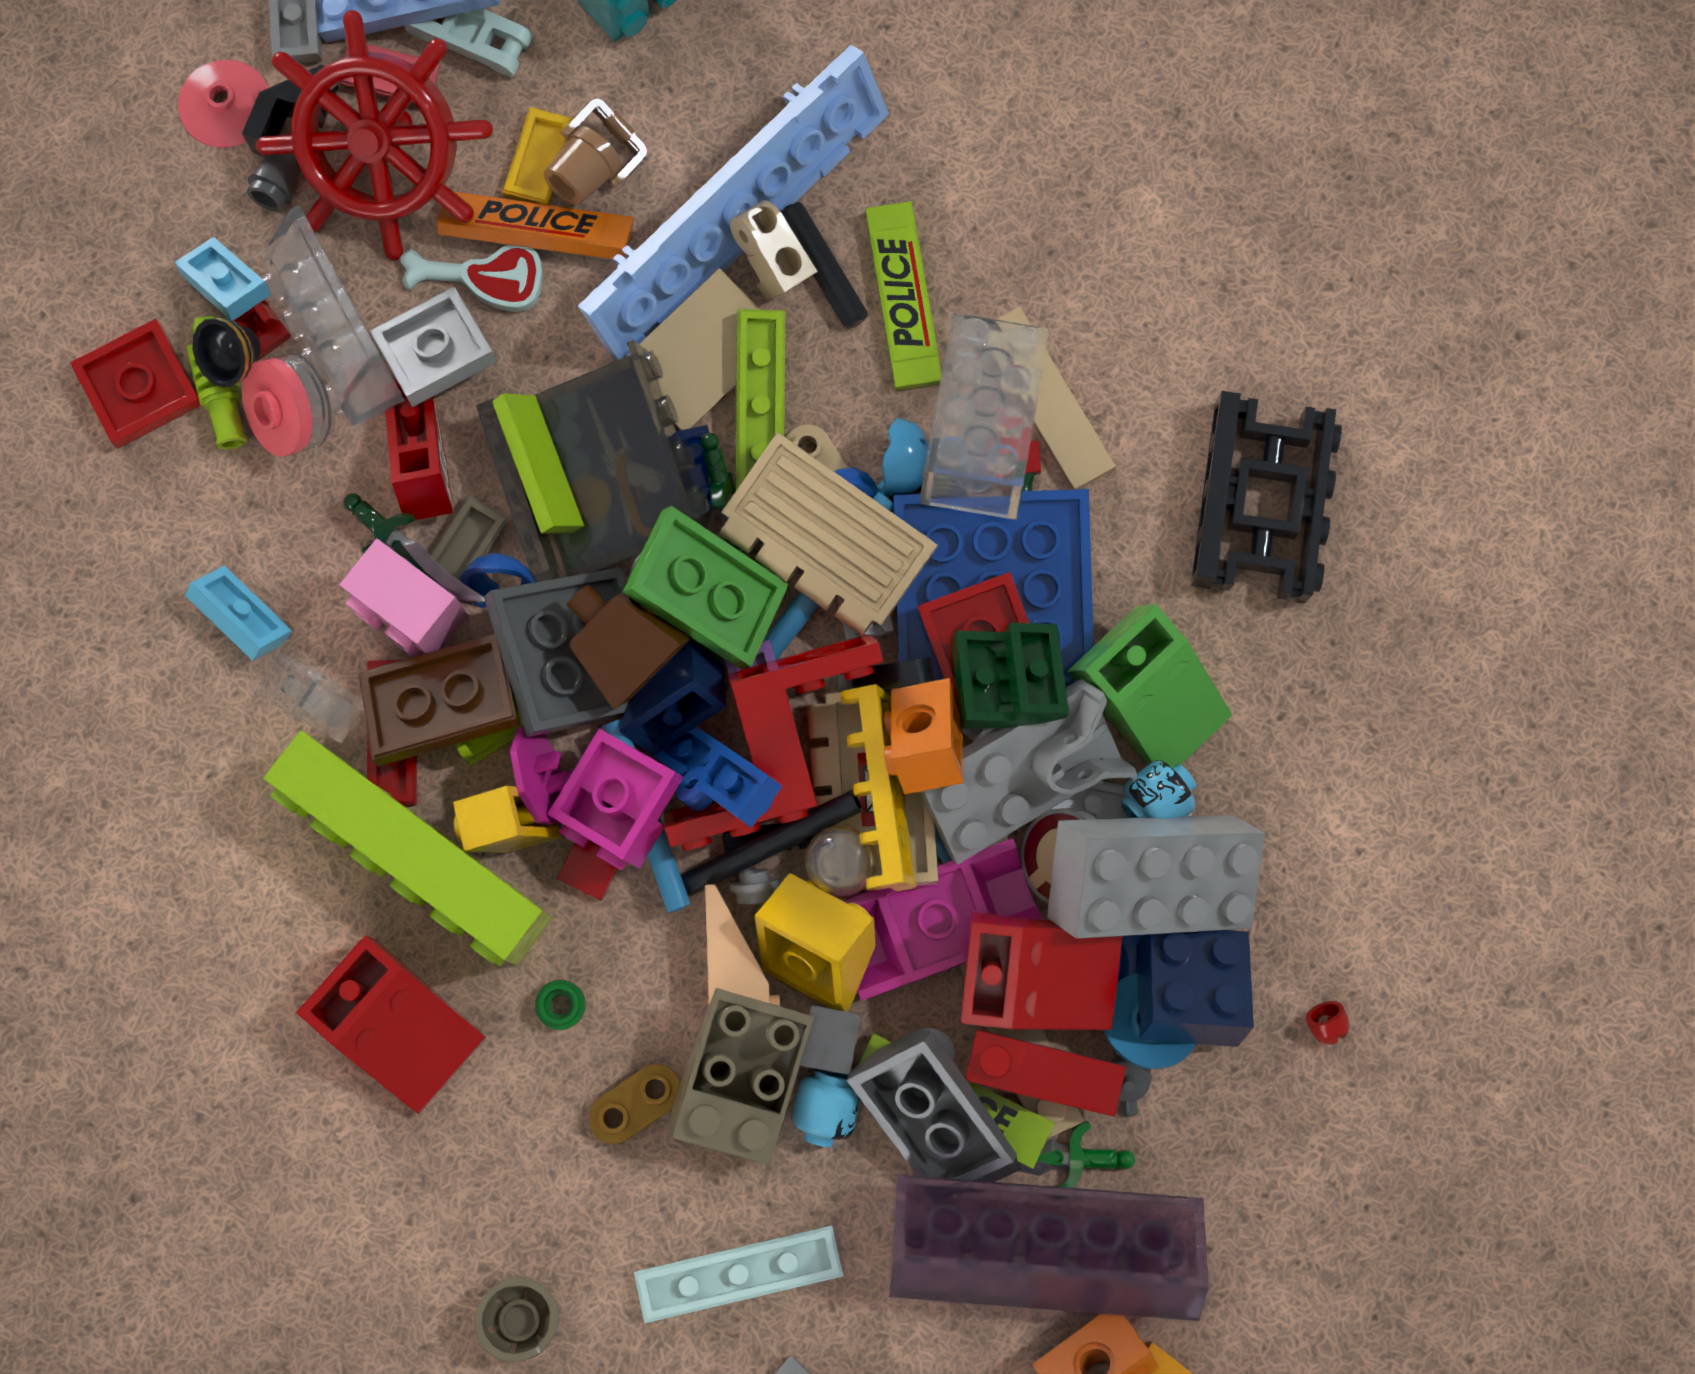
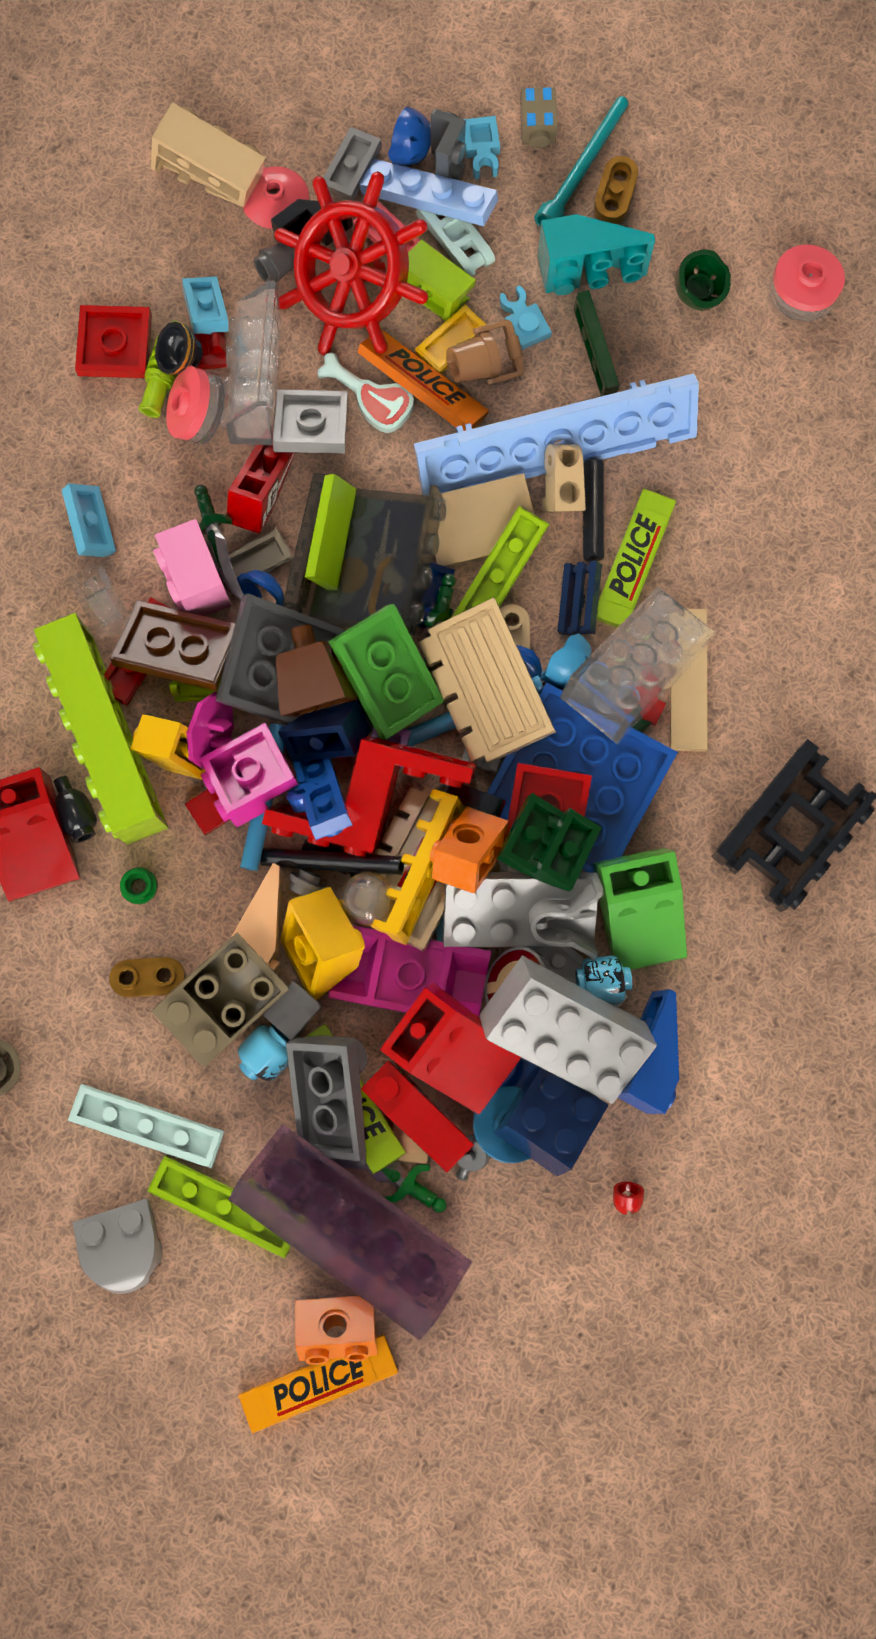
camera: 35 degrees right, 0 degrees up
(117, 99) = (206, 155): none -> tan wedge
(432, 962) = (74, 811): none -> black plant
(485, 94) = (440, 279): none -> lime hinge
(614, 86) = (527, 321): none -> medium azure plate
(713, 73) = (595, 344): none -> dark green tile
(853, 384) = (572, 625): none -> dark blue tile
(868, 1314) = (210, 1201): none -> lime tile
(1285, 874) = (655, 1082): none -> blue slope

